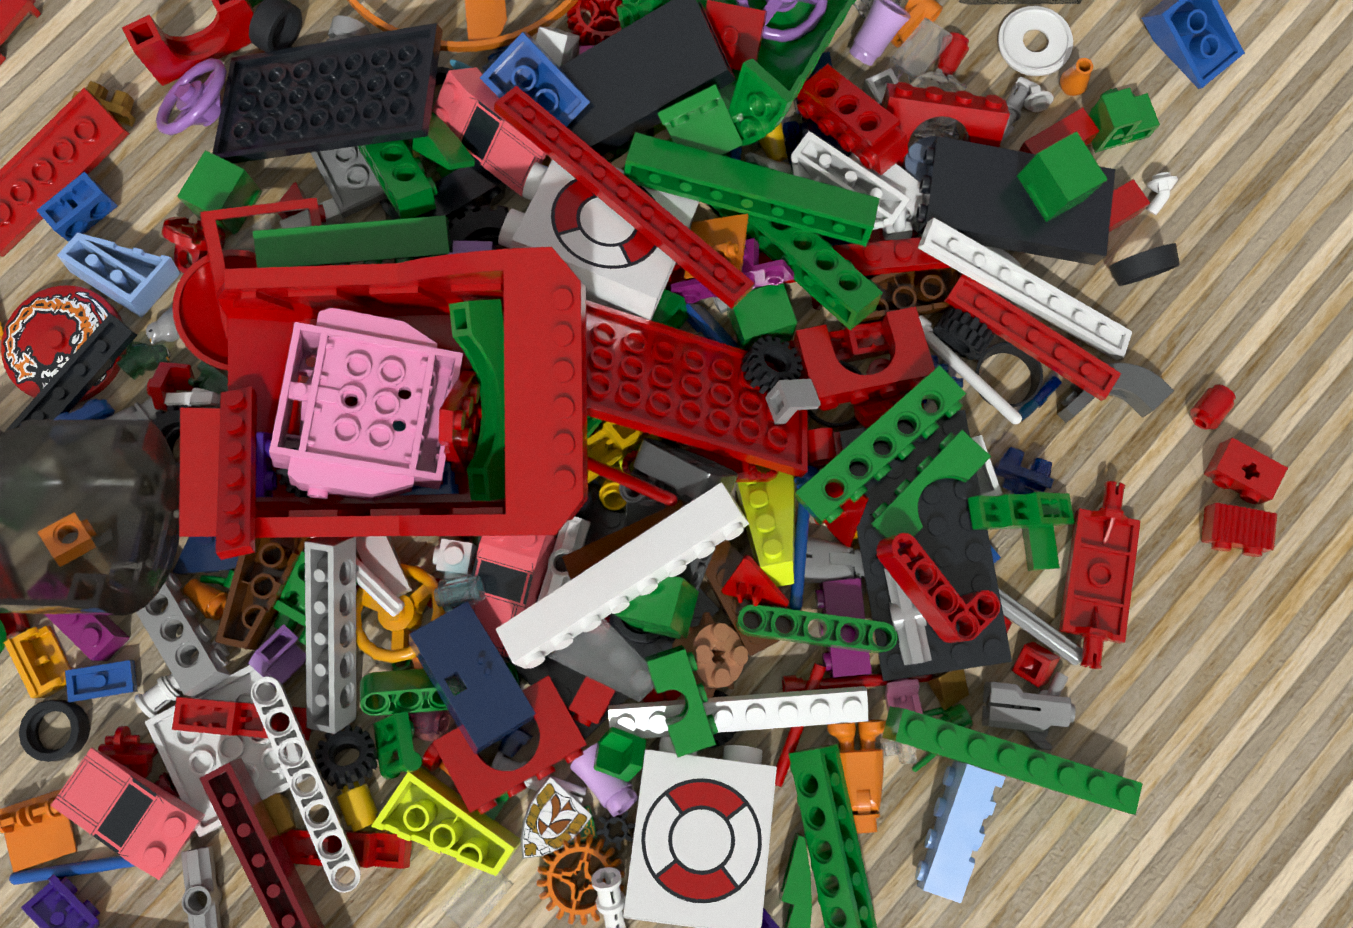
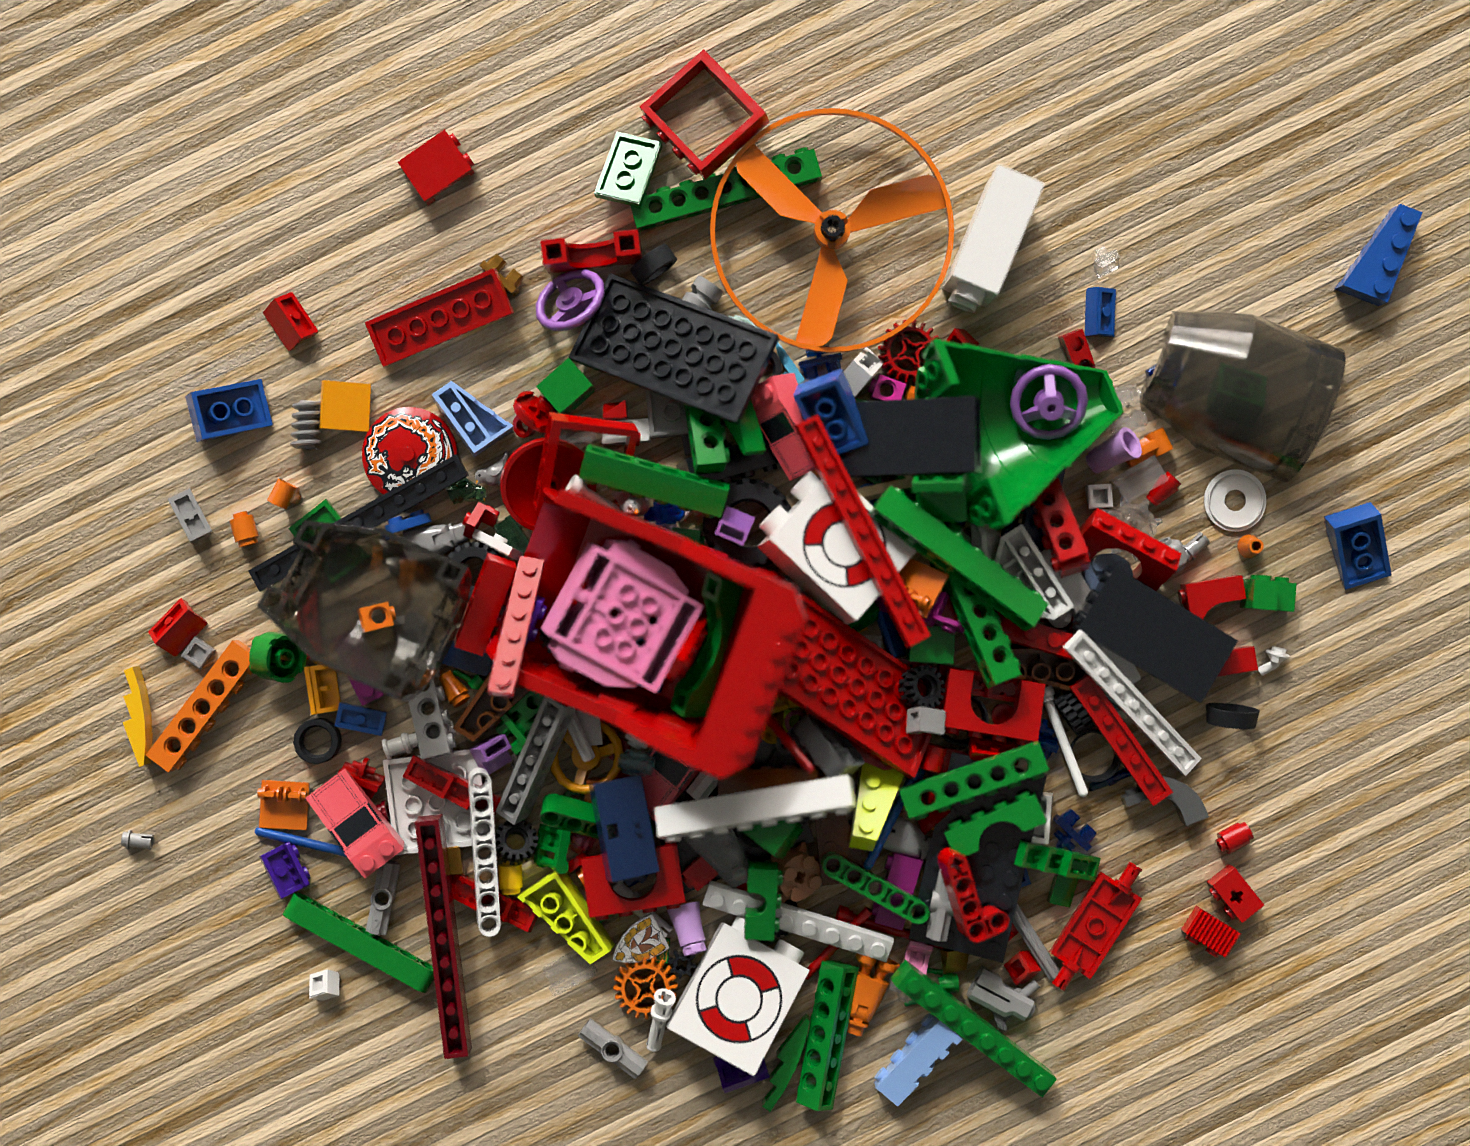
camera: 25 degrees right, 10 degrees up
(77, 207) = (455, 355): blue brick -> none
(620, 754) = (705, 918): green panel -> none
(737, 30) = (1000, 421): red plate -> none
(752, 583) = (842, 839): red piece -> none
(1038, 99) = (1213, 550): white plate -> none
(1061, 176) = (1189, 640): green piece -> none

